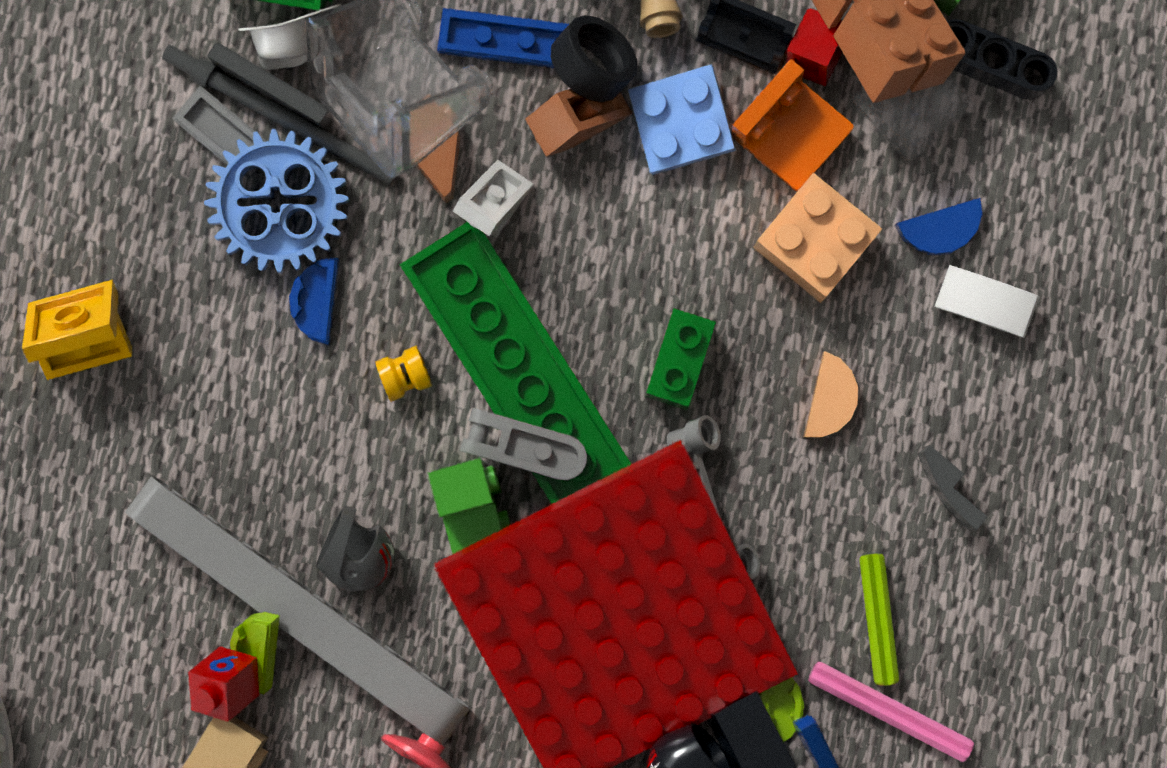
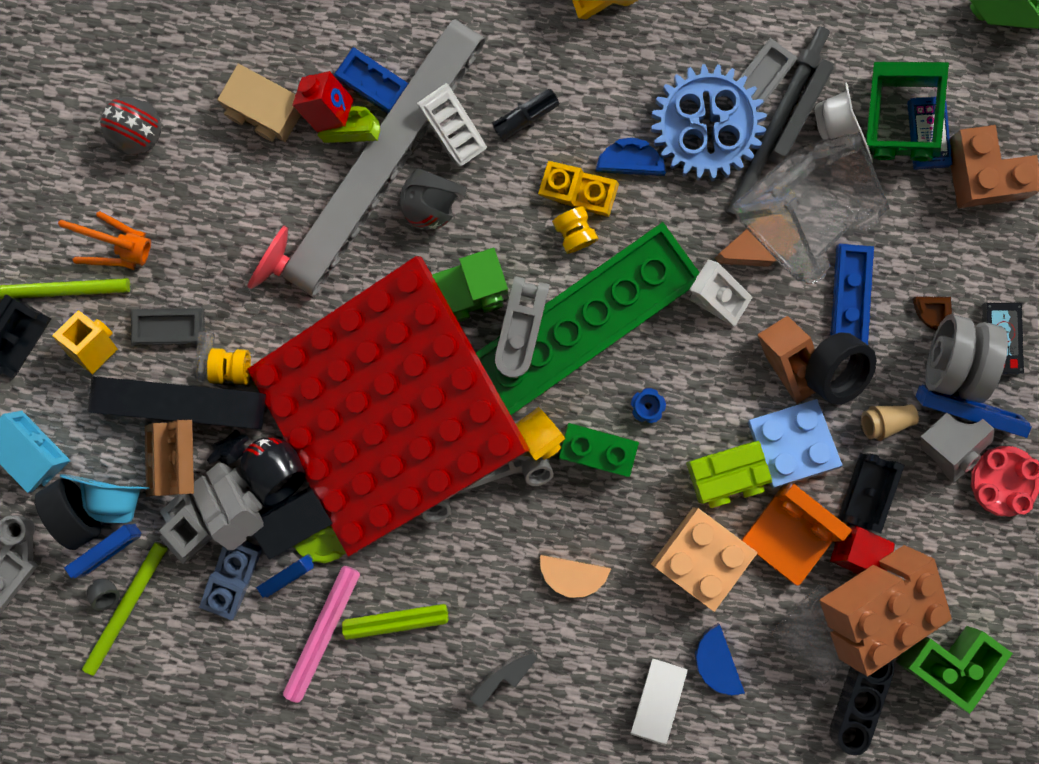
camera: 85 degrees right, 0 degrees up
(197, 622) = (370, 80): none -> blue plate
(252, 428) = (525, 114): none -> black axle
(288, 508) = (464, 144): none -> white slope
(350, 367) = (577, 189): none -> yellow slope
(623, 283) = (657, 403): none -> blue plate
(658, 428) = (540, 434): none -> yellow slope
(714, 200) = (729, 473): none -> lime brick

